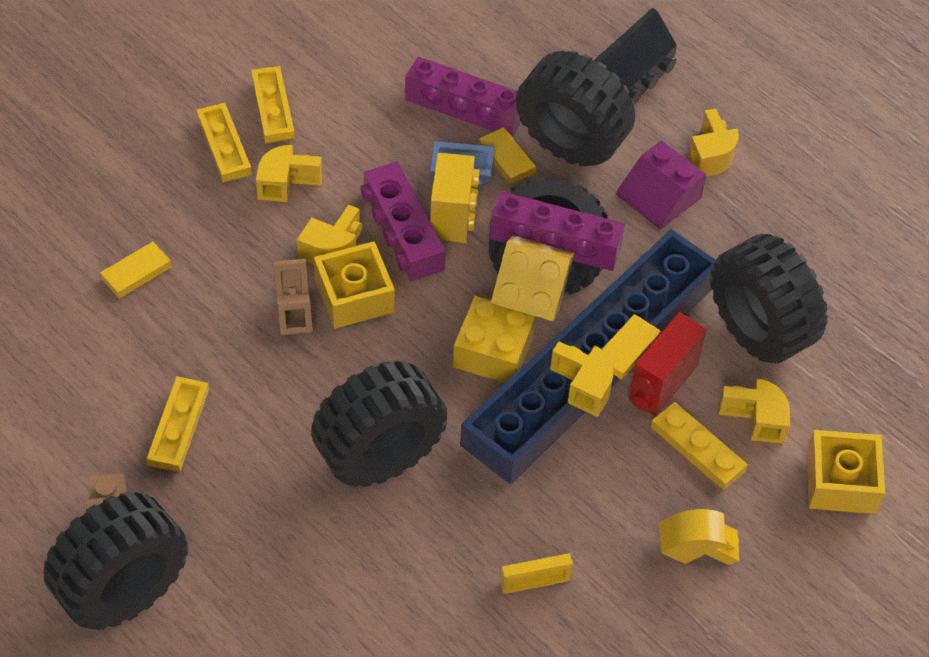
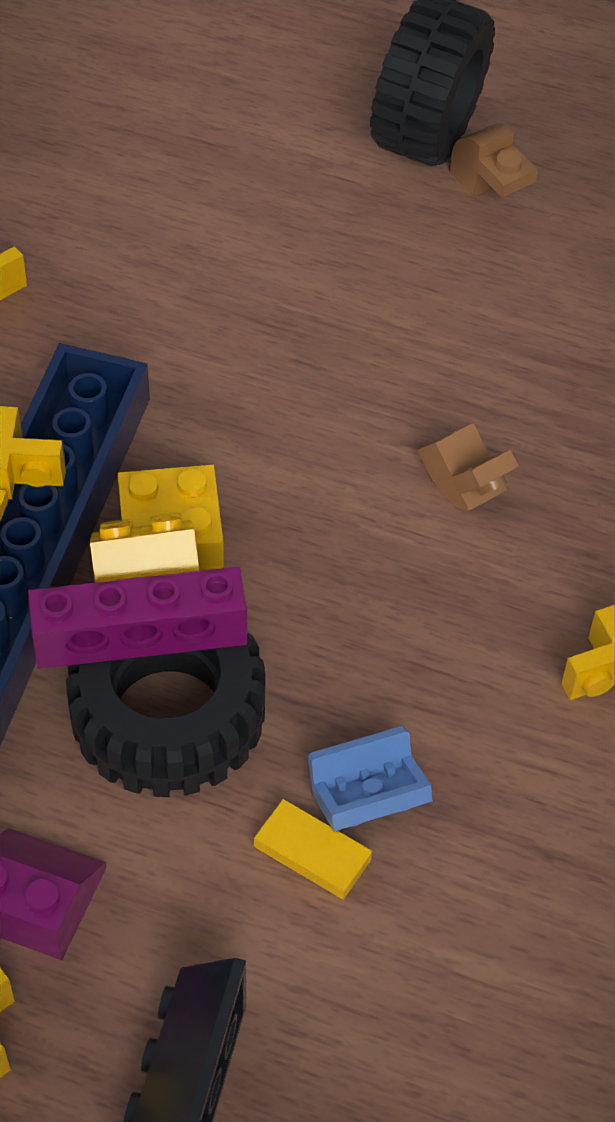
camera: 155 degrees right, 0 degrees up
(178, 424) = (497, 291): yellow plate -> none
(322, 238) = (480, 571): yellow brick -> none
(354, 285) = (400, 513): yellow brick -> none
(379, 423) = (240, 300): black tyre -> none
(403, 221) = (409, 674): magenta brick -> none
(454, 197) = (340, 682): yellow brick -> none
(462, 96) = (438, 909): magenta brick -> none
(575, 108) = (220, 880): black tyre -> none

